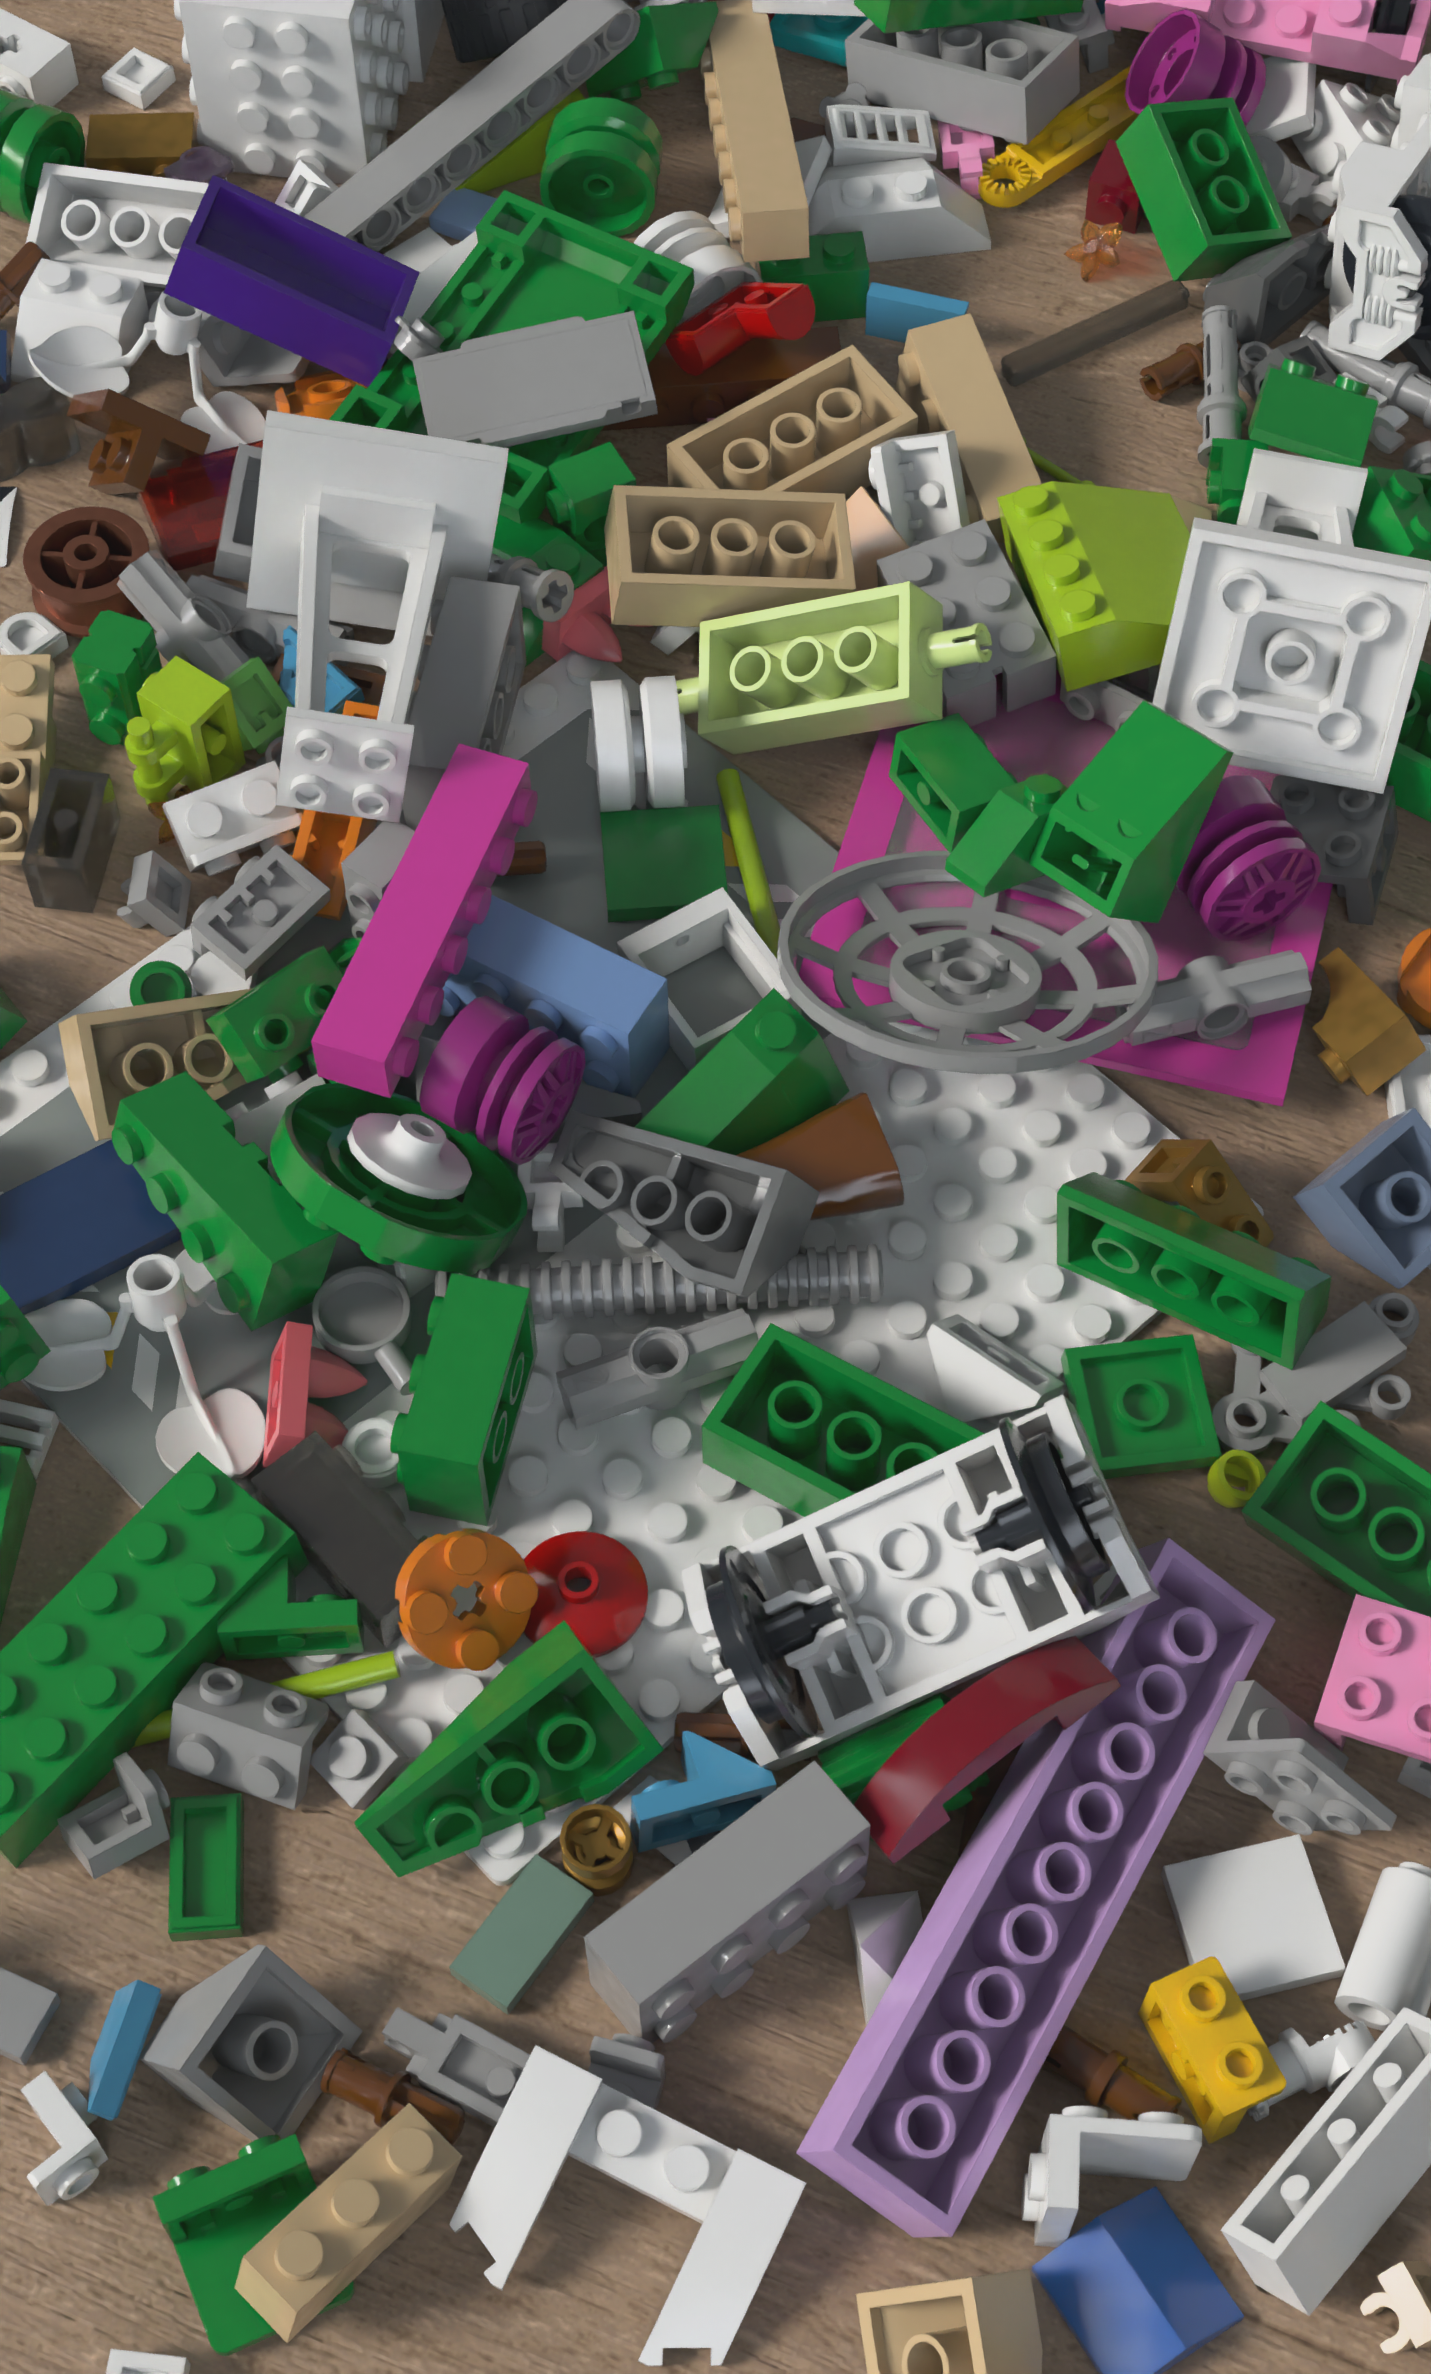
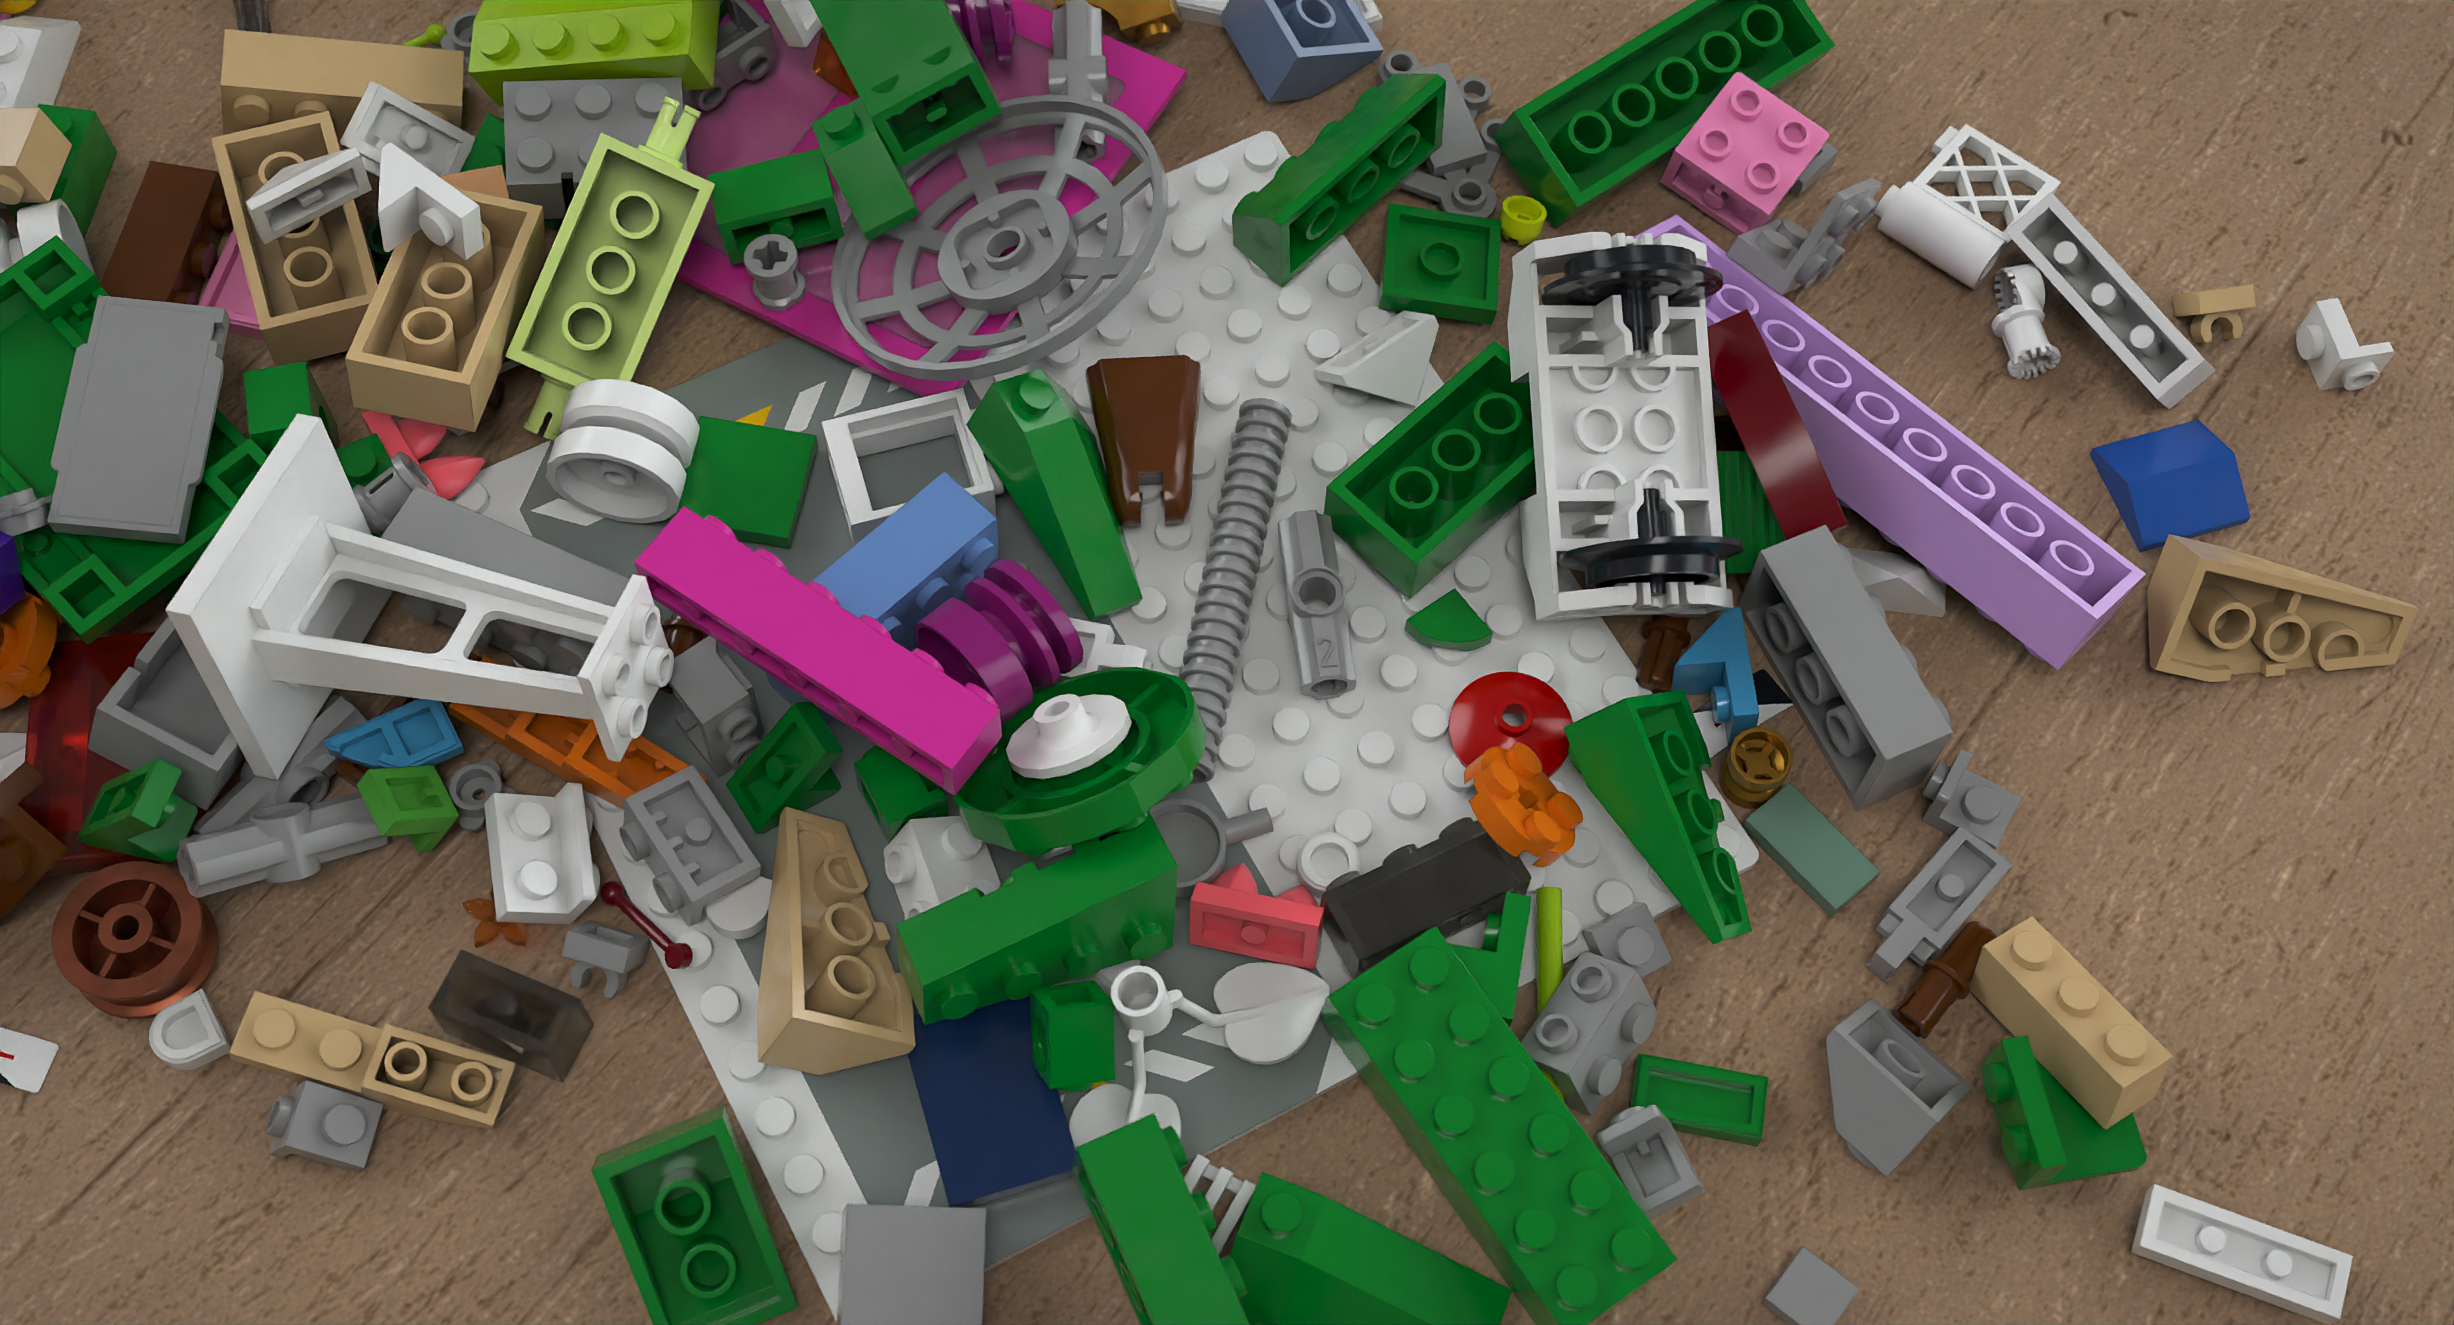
camera: 80 degrees left, 5 degrees up
(80, 2155) = (1926, 1253): white bracket -> none
(112, 669) = (320, 924): green brick -> none
(114, 1243) = (1072, 1035): none -> green brick
(120, 2047) = (1869, 1194): dark azure tile -> none
(159, 983) = (736, 962): green plate -> none
(164, 944) = (676, 954): none -> dark red hinge
(184, 732) = (418, 874): lime brick -> none
(186, 531) = (140, 814): none -> green slope
(278, 1017) = (832, 835): green brick -> none
(466, 1398) = (1323, 755): green brick -> none
(682, 1506) = (1449, 624): none -> green tile
(694, 1206) = (1179, 523): dark grey wedge -> none
(731, 2193) = (2002, 831): white wedge -> none
(736, 317) = (113, 213): red brick -> none
(749, 858) = (768, 409): lime bar -> none
(793, 479) = (419, 199): none -> white slope
(807, 420) = (307, 192): none -> white slope
(895, 797) = (773, 265): none -> light grey bush
(896, 310) = (152, 104): dark azure tile -> none
(1093, 2144) = (2098, 484): white bracket -> none
(1107, 2077) = (2027, 438): reddish brown pin -> none
(1202, 1181) = (1244, 157): pearl gold bracket -> none
(1210, 2046) = (2009, 371): yellow bracket -> none
(1256, 1916) = (1898, 320): white tile -> none

